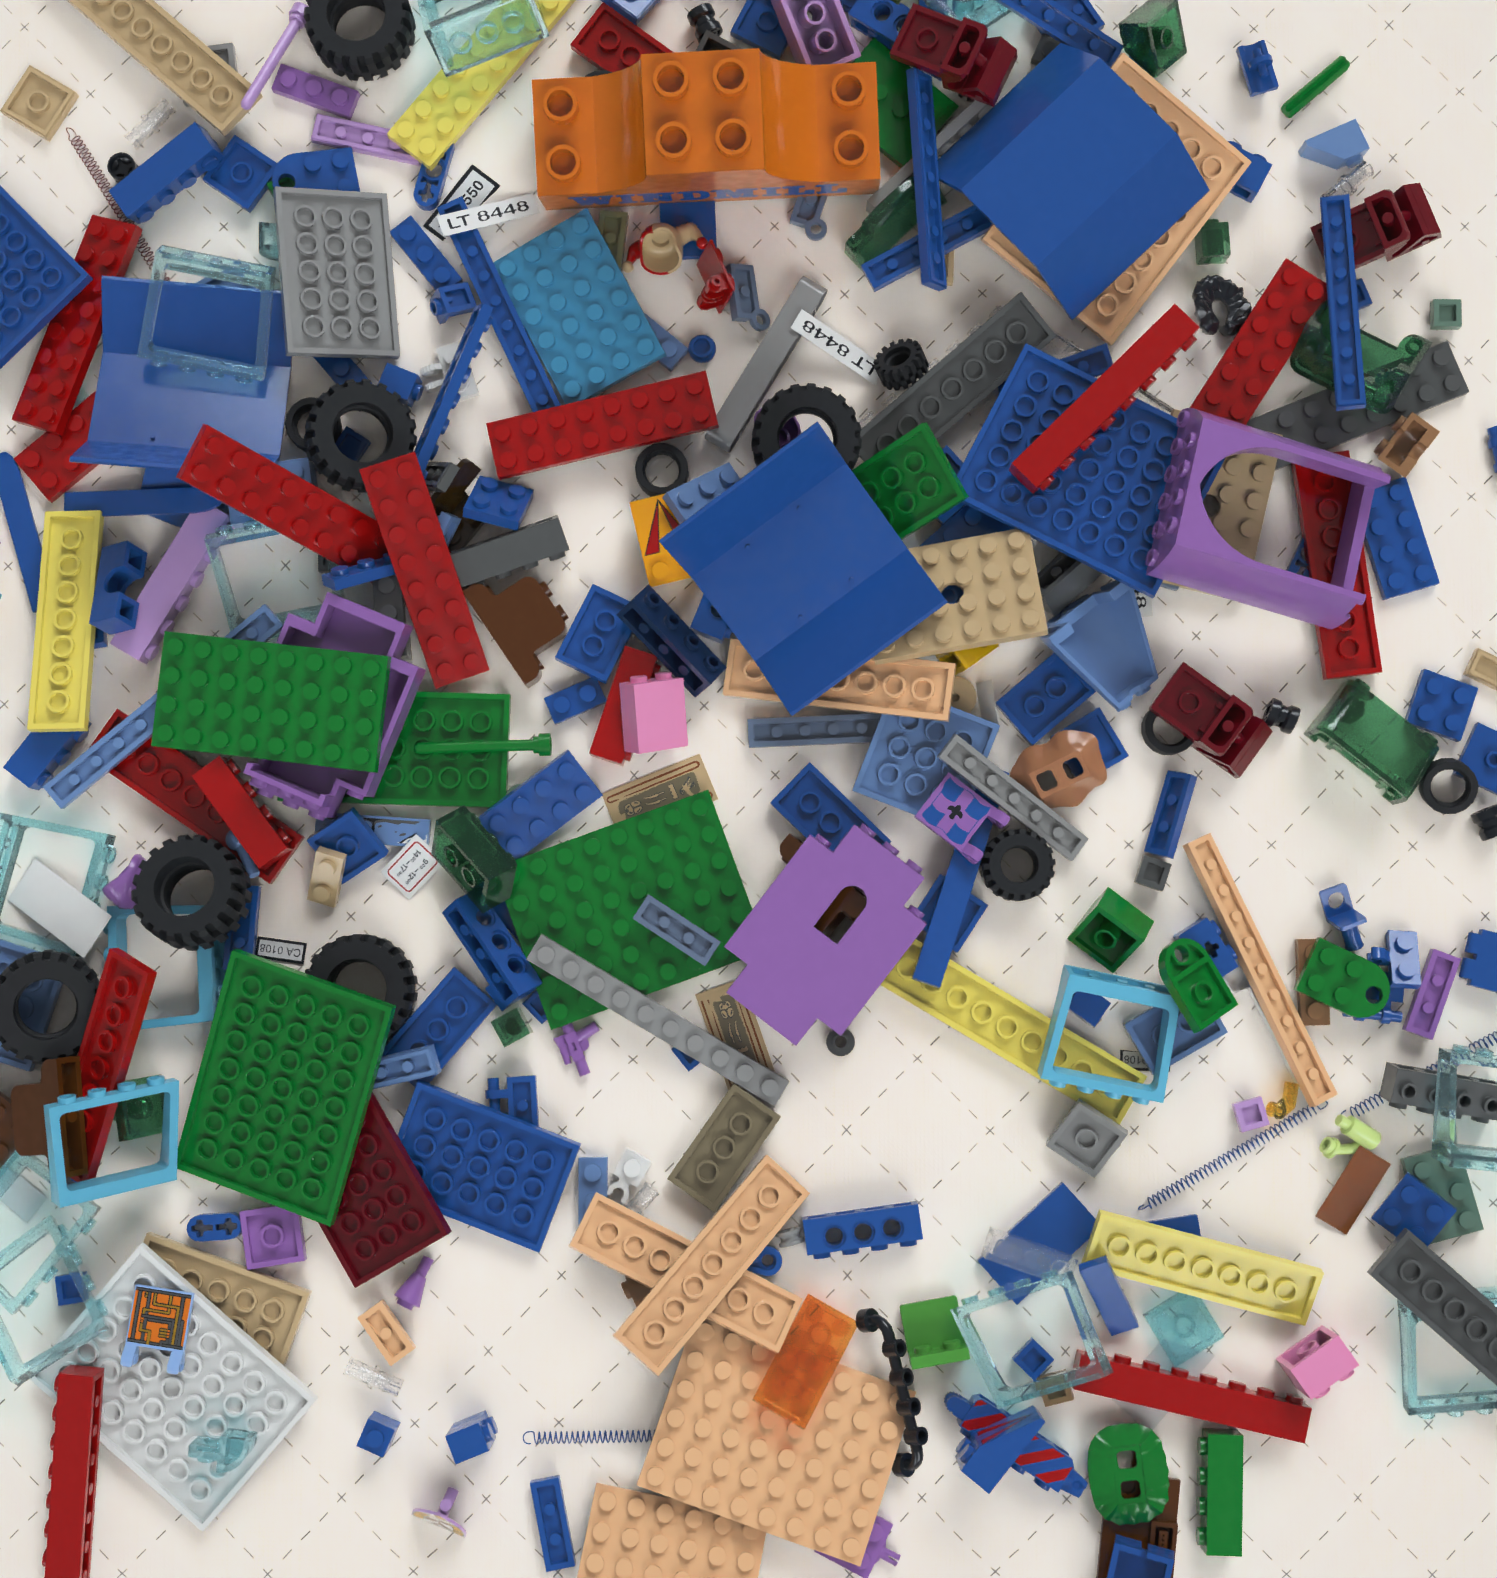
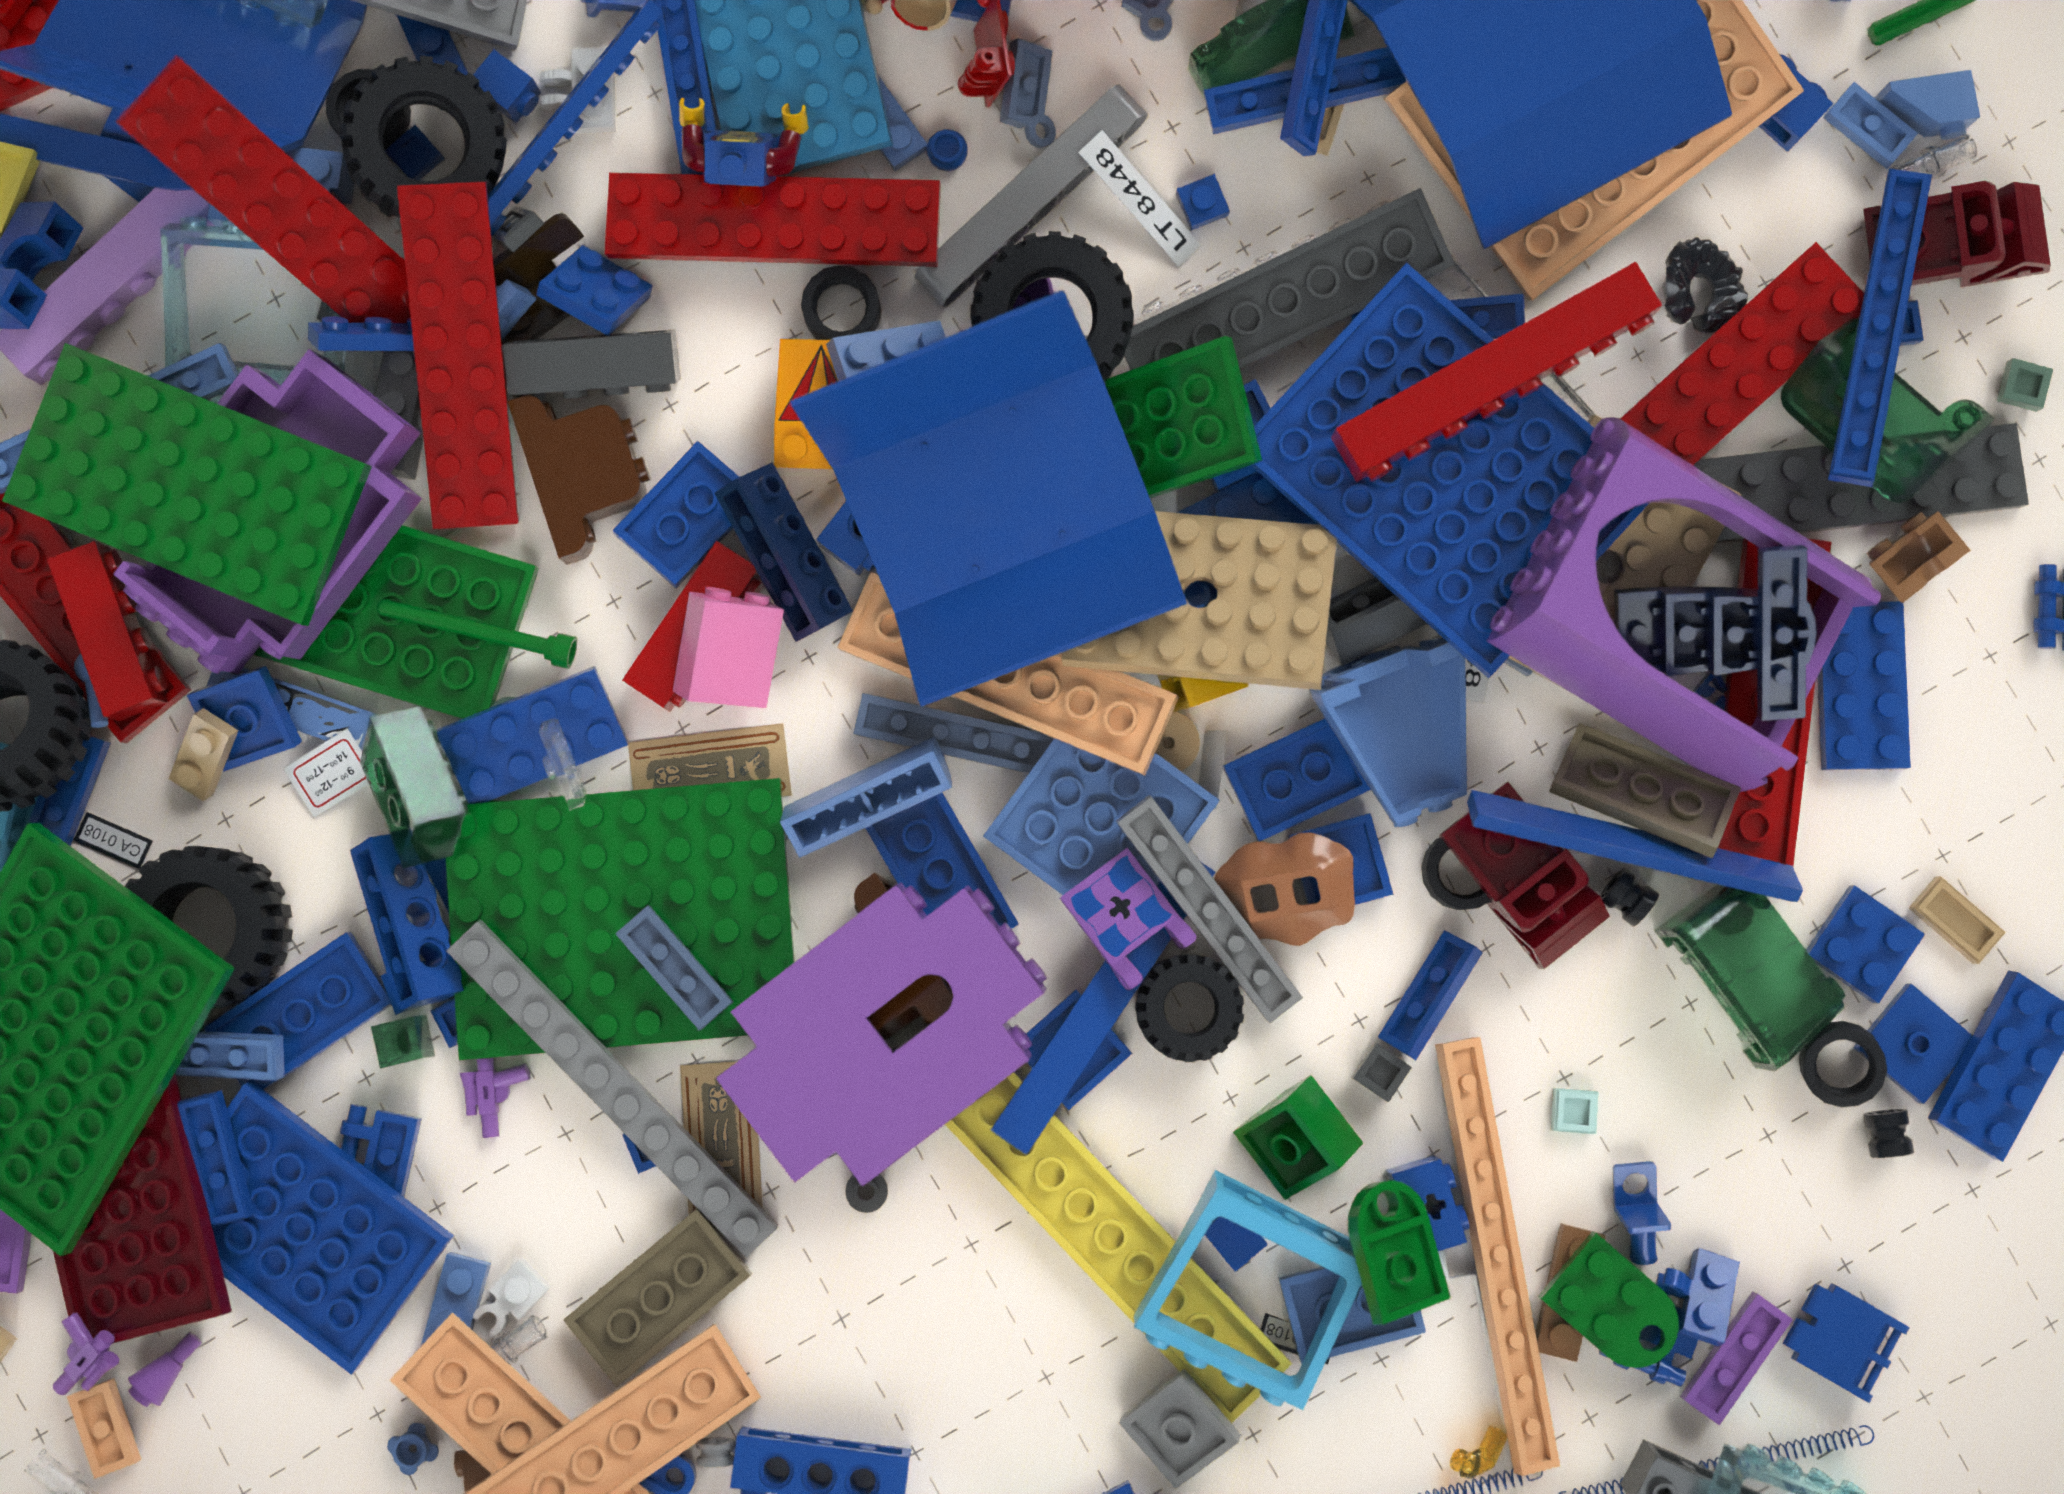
camera: 15 degrees right, 0 degrees up
(364, 1287) = (88, 1356): none -> medium lavender piece
(412, 1134) = (216, 1157): none -> blue tile
(565, 818) = (561, 765): none -> clear plate
(571, 389) = (740, 155): none -> torso
(575, 700) = (627, 599): blue plate -> none
(591, 1299) = (403, 1457): none -> medium blue plate
(769, 786) = (866, 797): none -> medium blue brick
(878, 336) = (1202, 202): none -> blue plate
(901, 364) = (1221, 246): black tyre -> none
(1212, 243) = (1716, 193): clear green brick -> none
(1250, 1114) = (1426, 1459): lavender plate -> none
(1273, 643) = (1645, 790): none -> dark tan plate
(1276, 681) = (1631, 846): none -> blue tile
(1284, 864) = (1574, 1111): none -> light aqua tile
(1300, 171) = (1870, 125): none -> medium blue plate
(1301, 524) = (1731, 630): none -> dark blue slope

